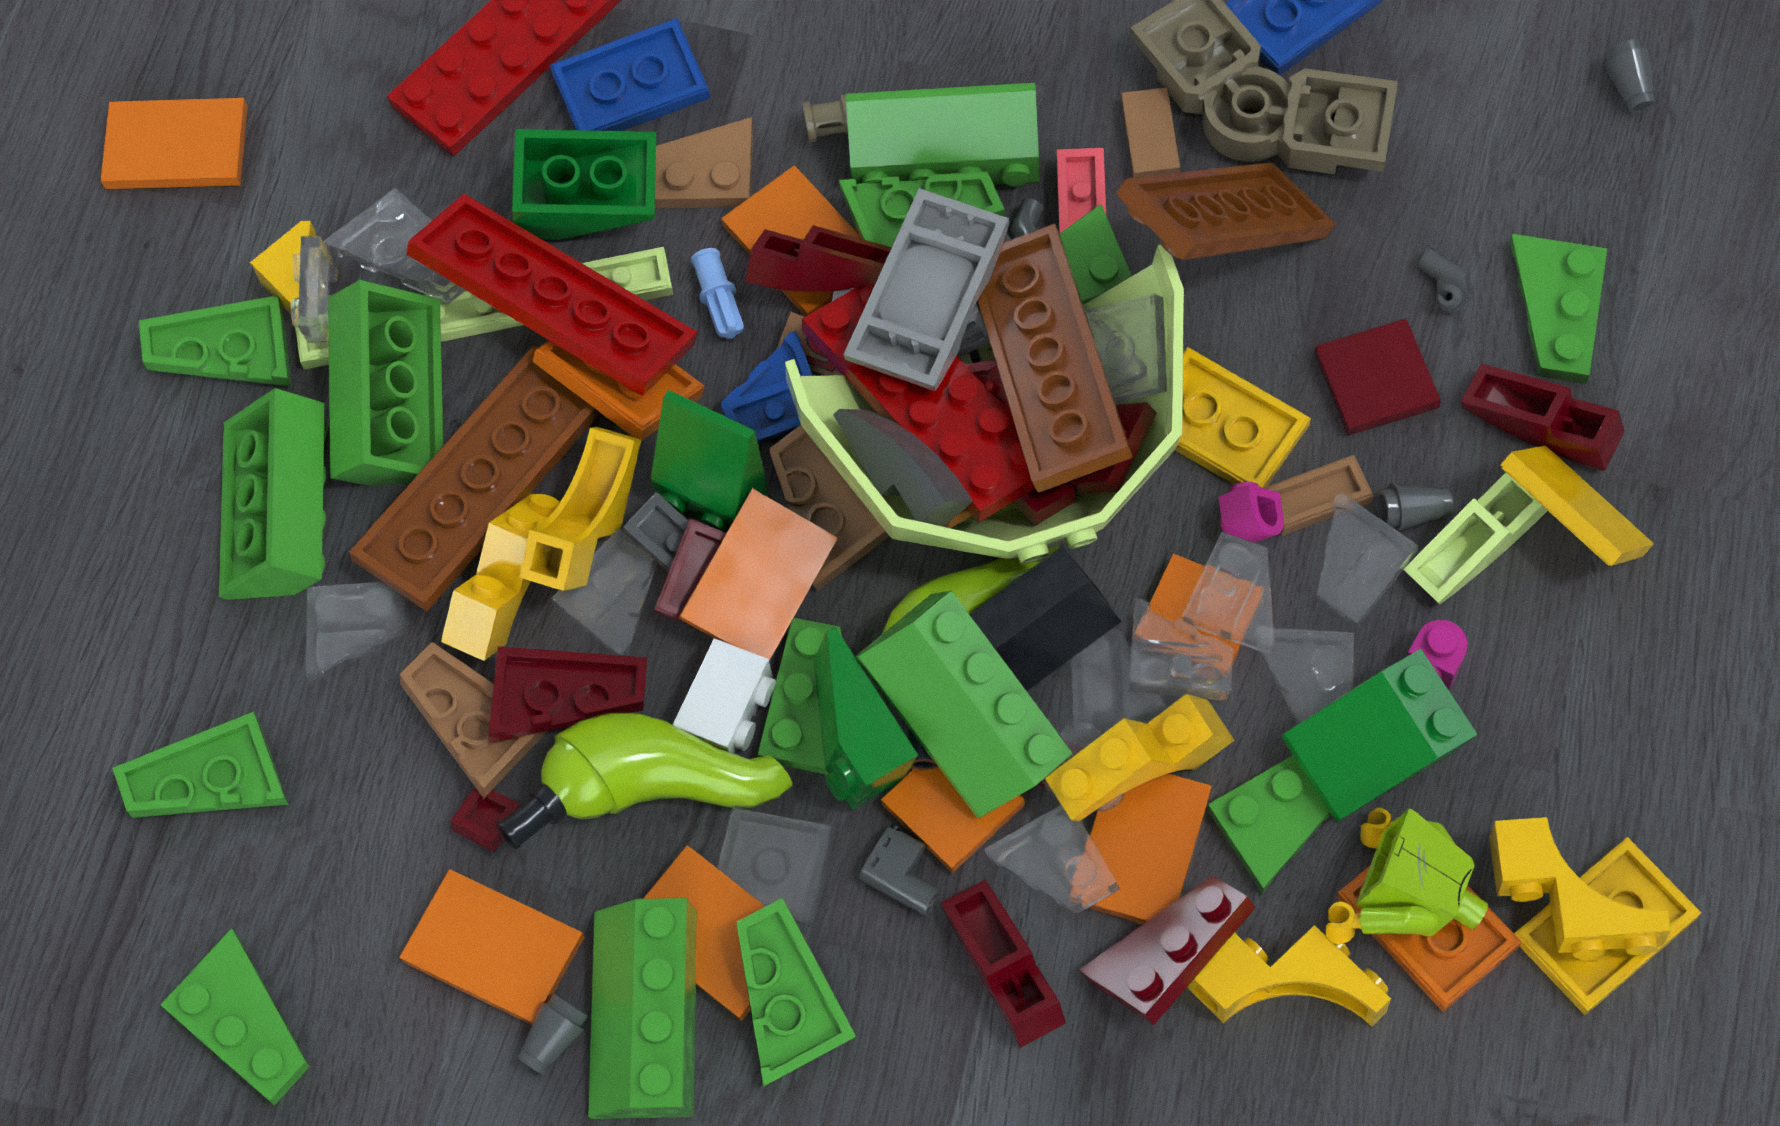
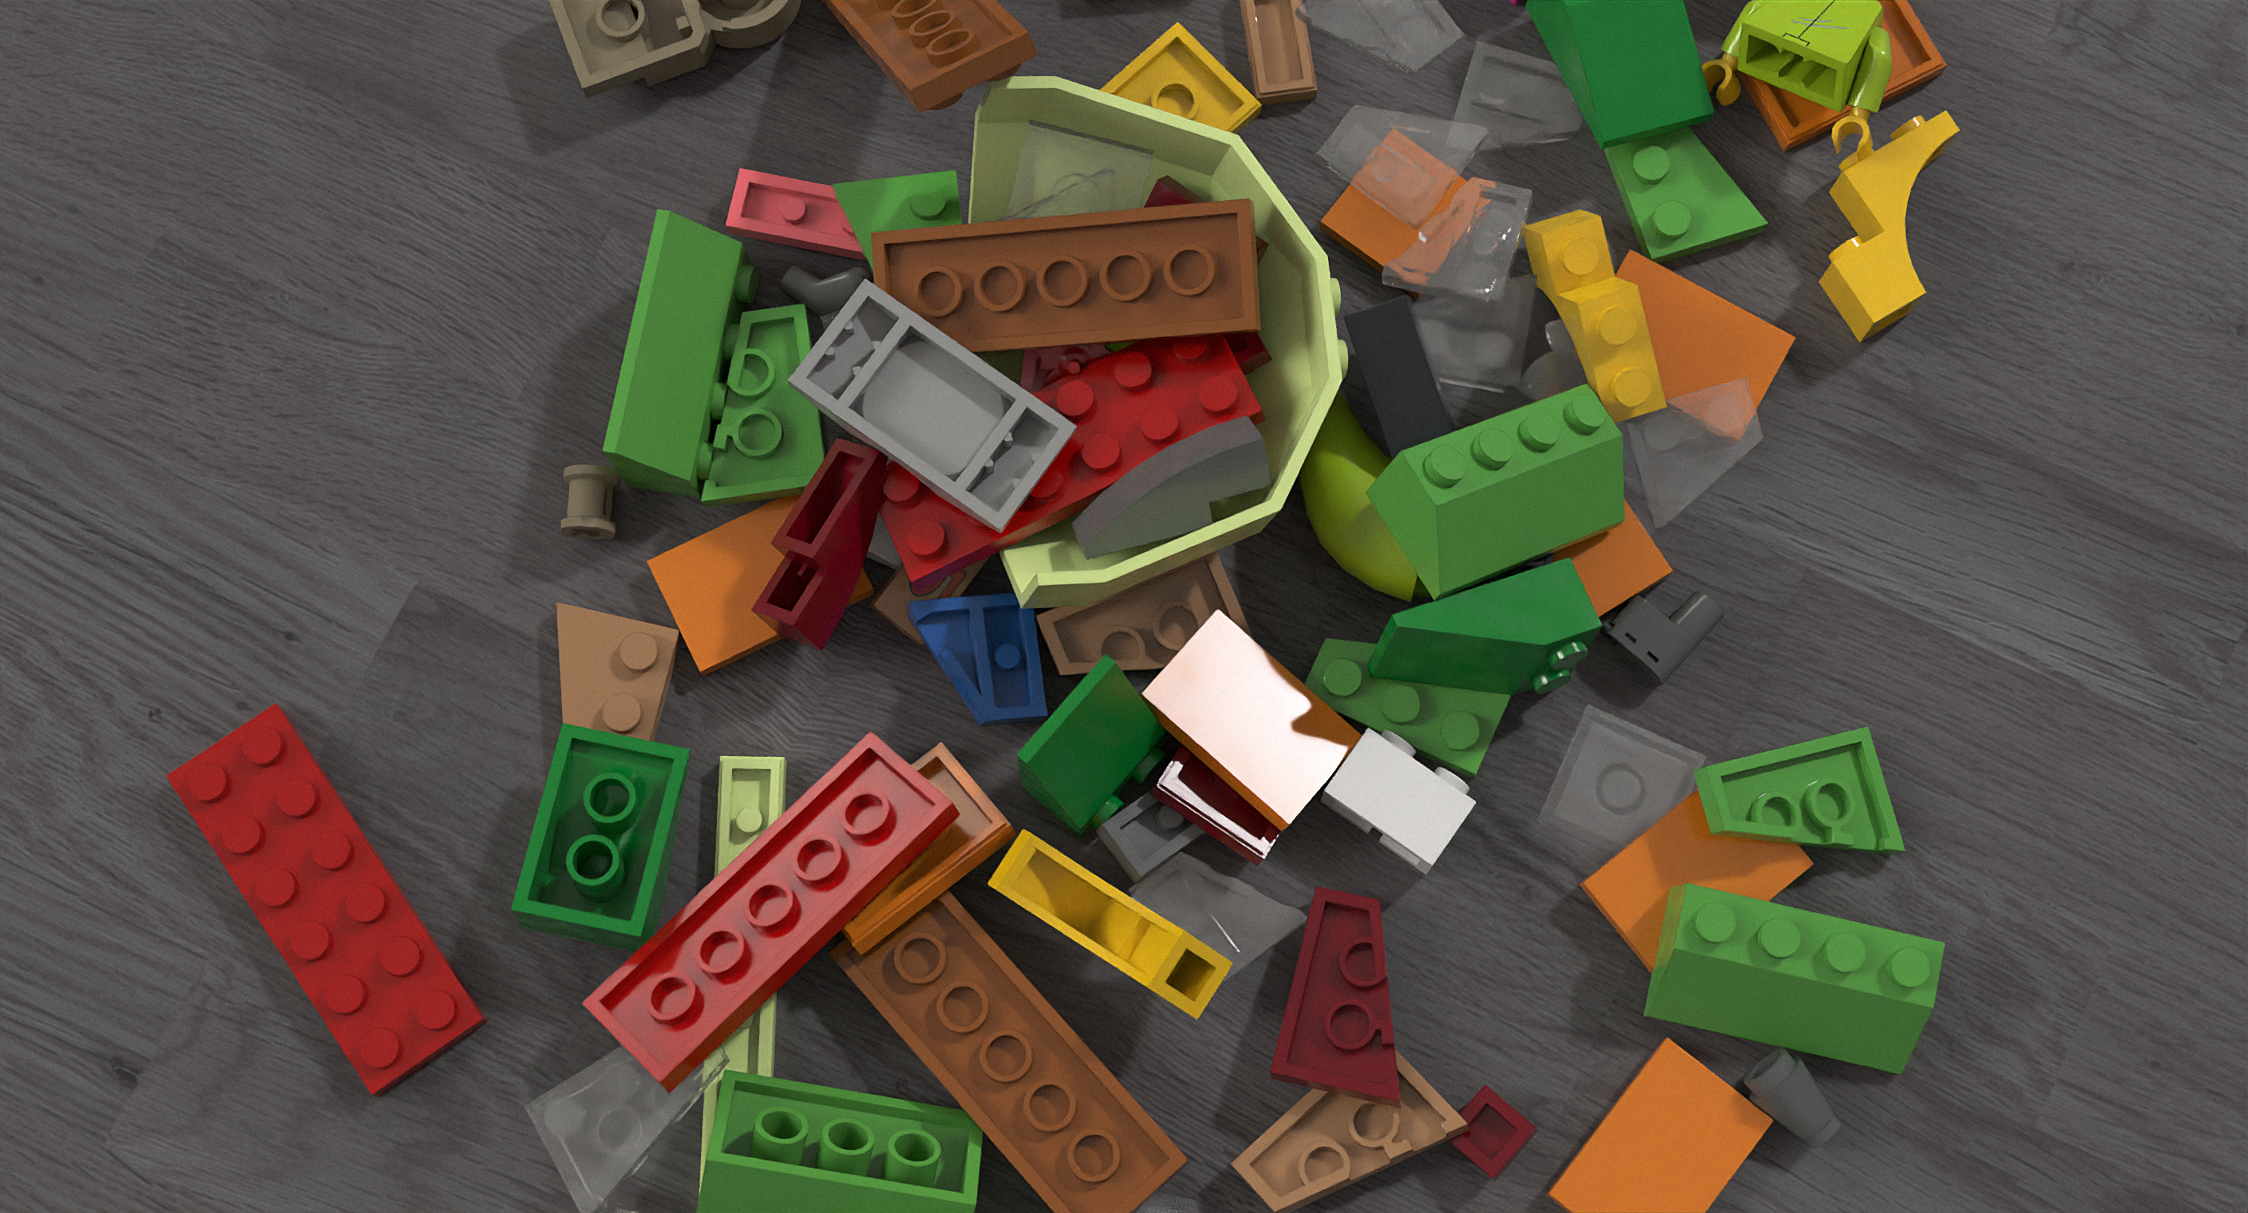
camera: 85 degrees left, 10 degrees up
(488, 602) = (1161, 1046): yellow arch -> none
(631, 80) = (445, 756): blue tile -> none
(635, 759) = (1463, 930): lime animal -> none
(717, 293) = (810, 699): light blue axle -> none
(1004, 963) = (1801, 536): dark red slope -> none
(1150, 132) = (726, 112): medium nougat tile -> none
(1169, 950) = (1839, 339): wing -> none
(1251, 512) = (1296, 117): dark pink plate -> none

